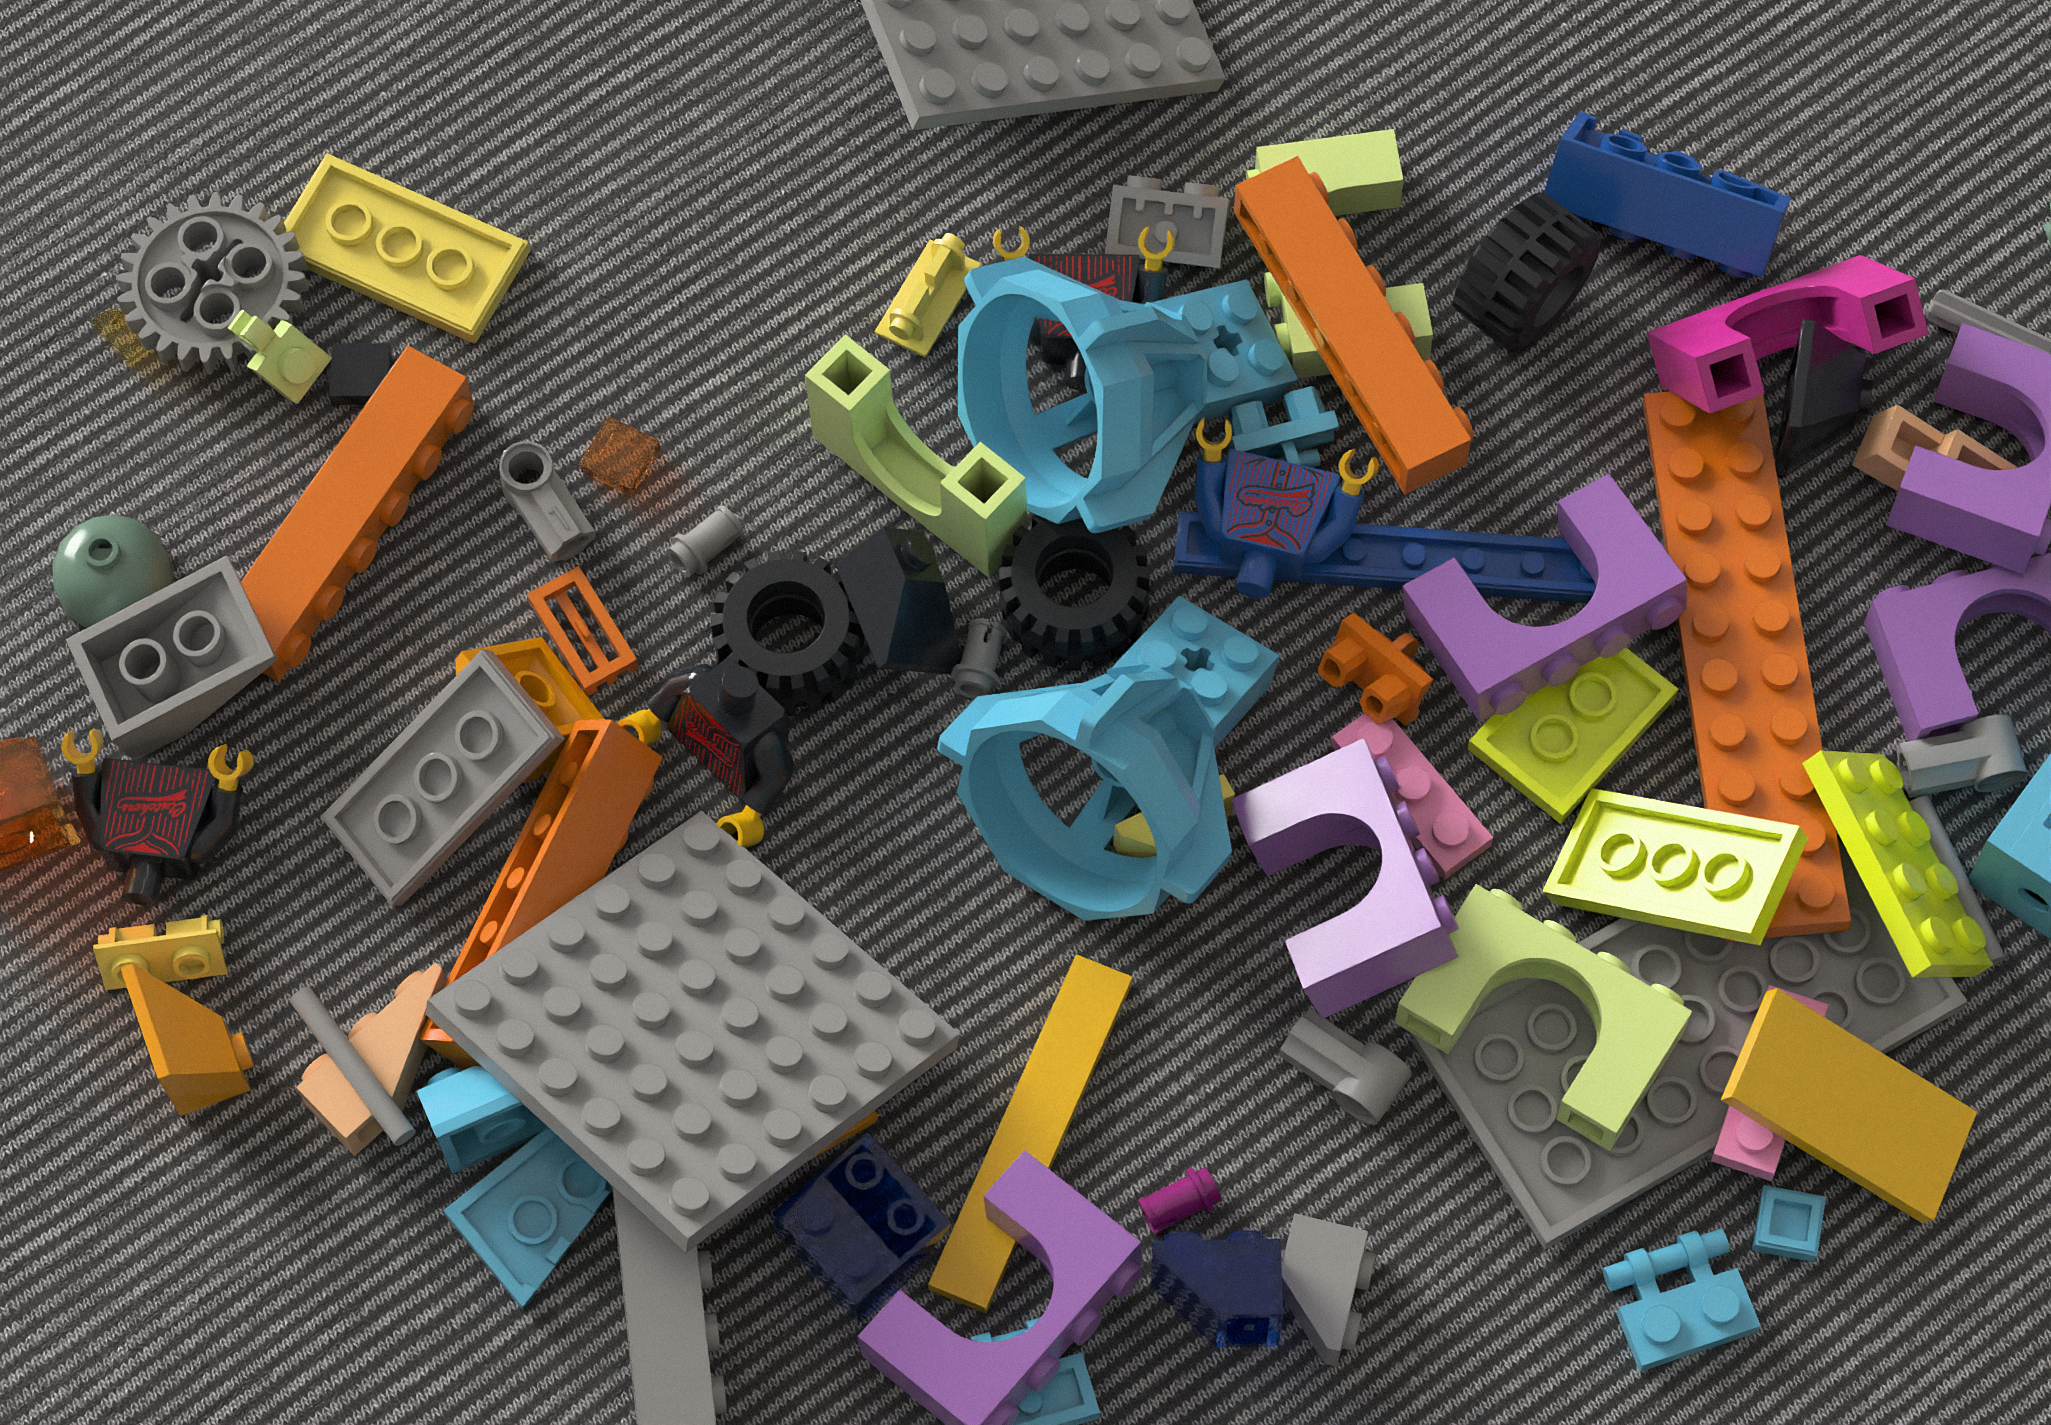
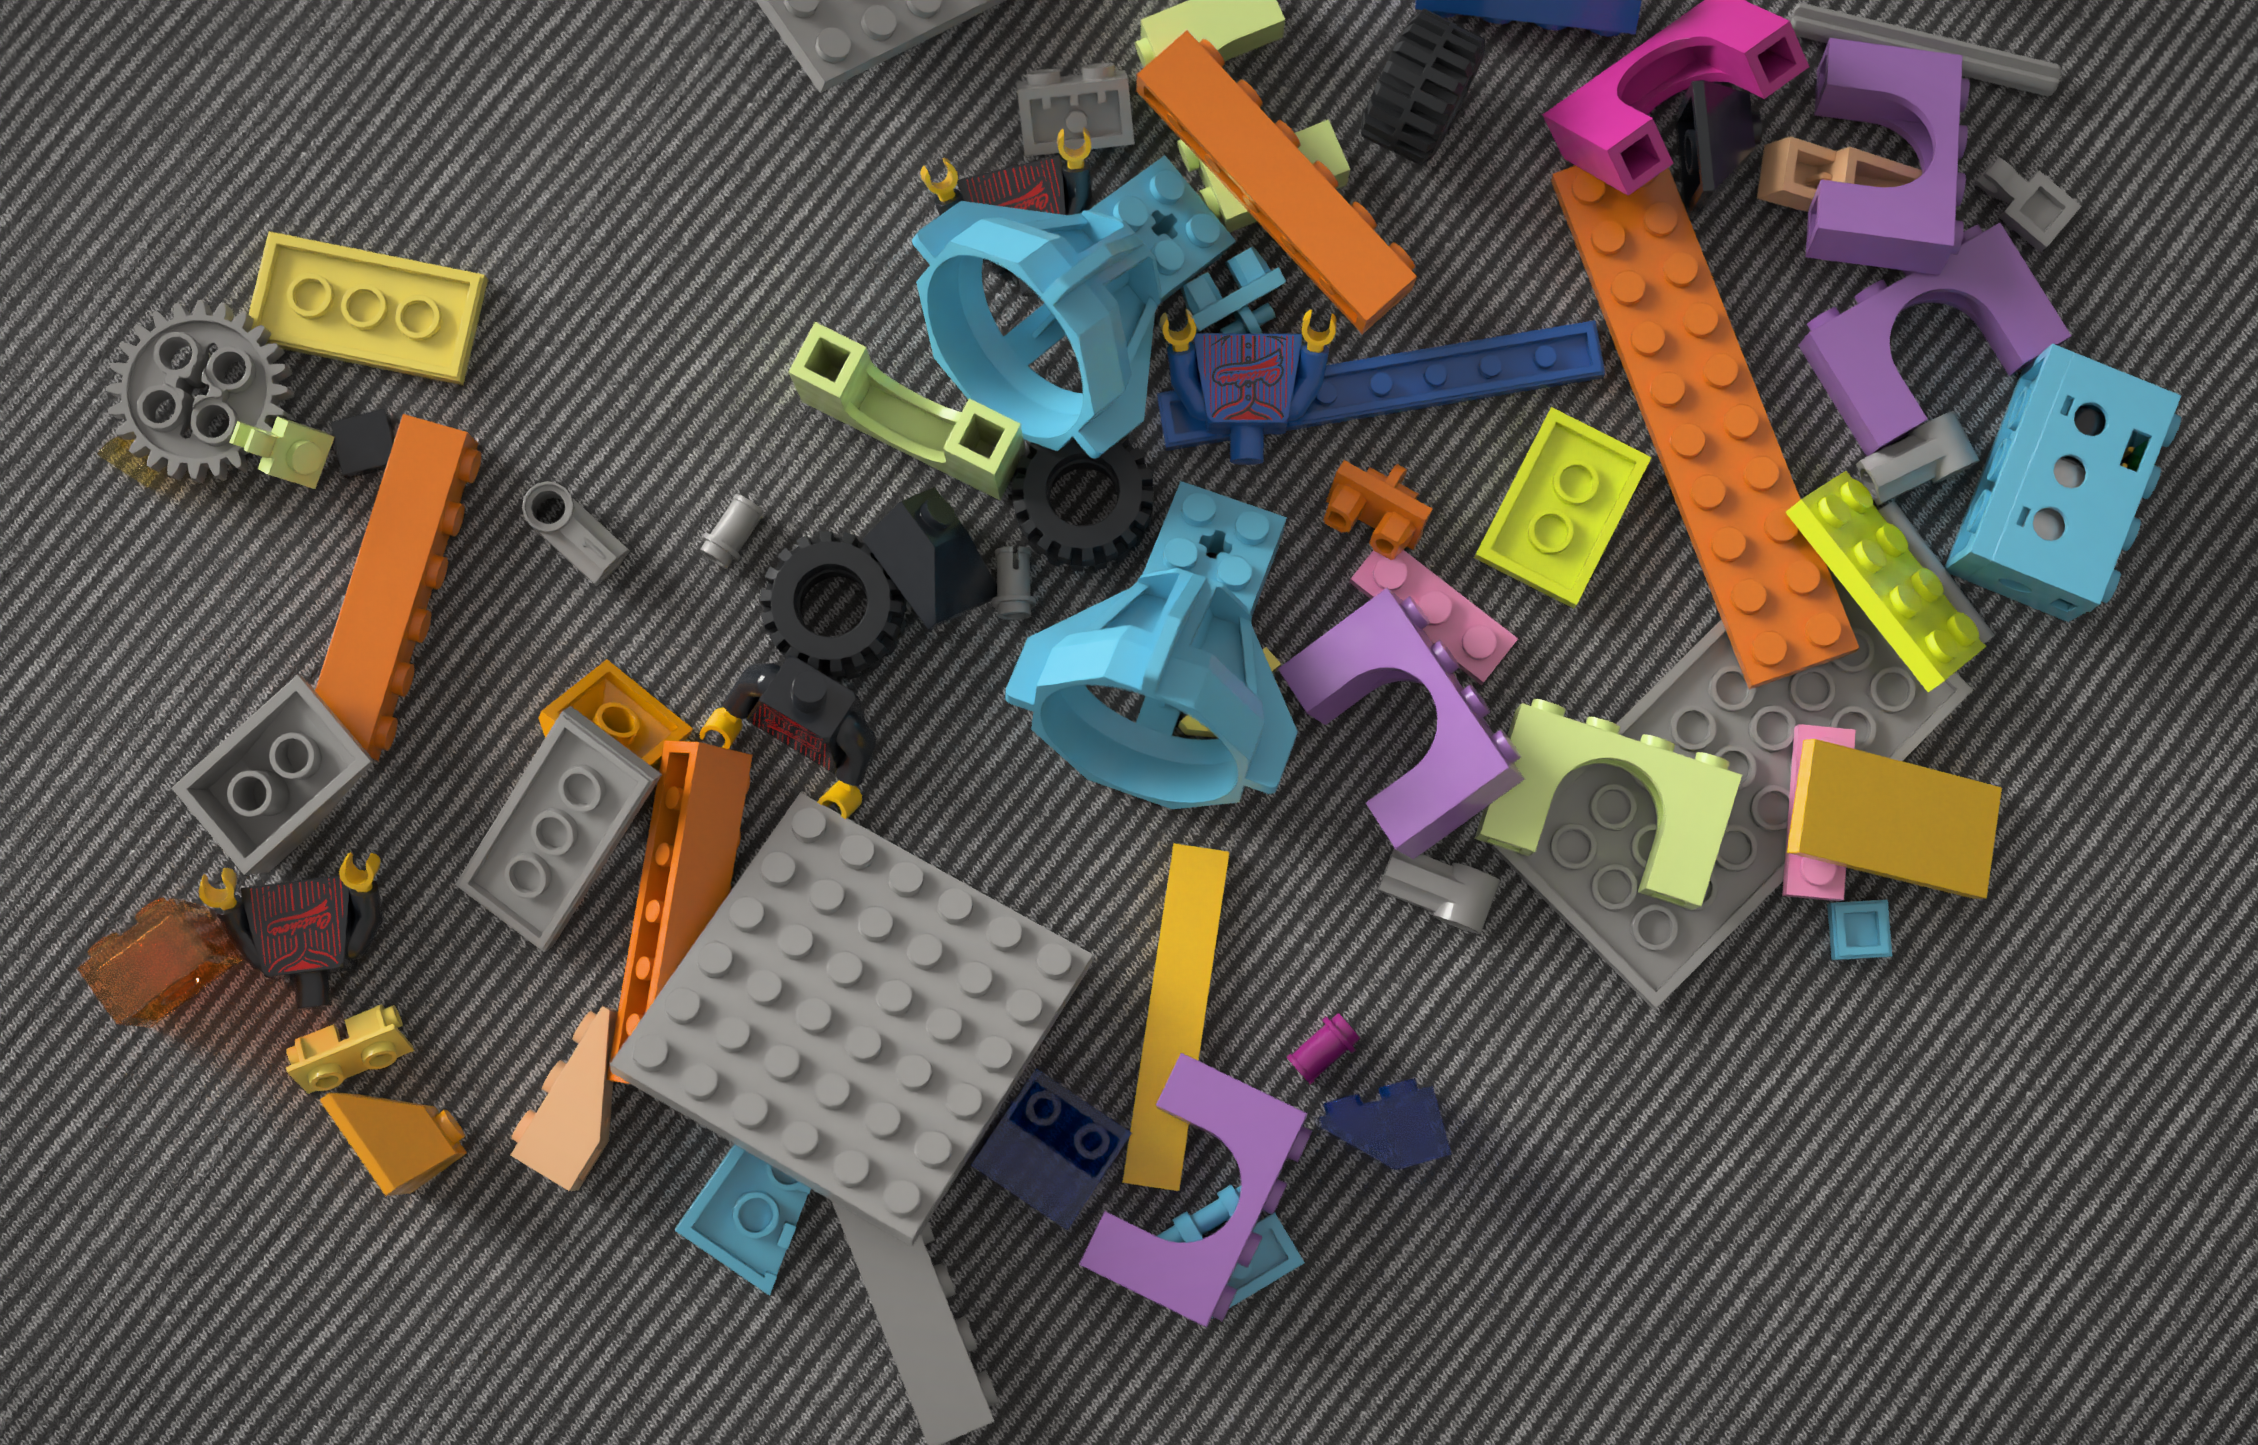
camera: 15 degrees left, 15 degrees up
(108, 567) = (192, 699): sand green cylinder -> none
(352, 1066) = (555, 1125): light grey bar -> none
(475, 1116) = (666, 1140): medium azure slope -> none
(606, 670) = (677, 678): orange tile -> none
(619, 456) = (629, 465): clear orange tile -> none
(928, 296) = (872, 237): light yellow hinge -> none
(1320, 1279) = (1469, 1093): light grey slope -> none
(1504, 662) = (1489, 476): medium lavender arch -> none
(1676, 865) = (1694, 636): neon yellow plate -> none
(1688, 1317) = (1792, 1038): medium azure plate -> none

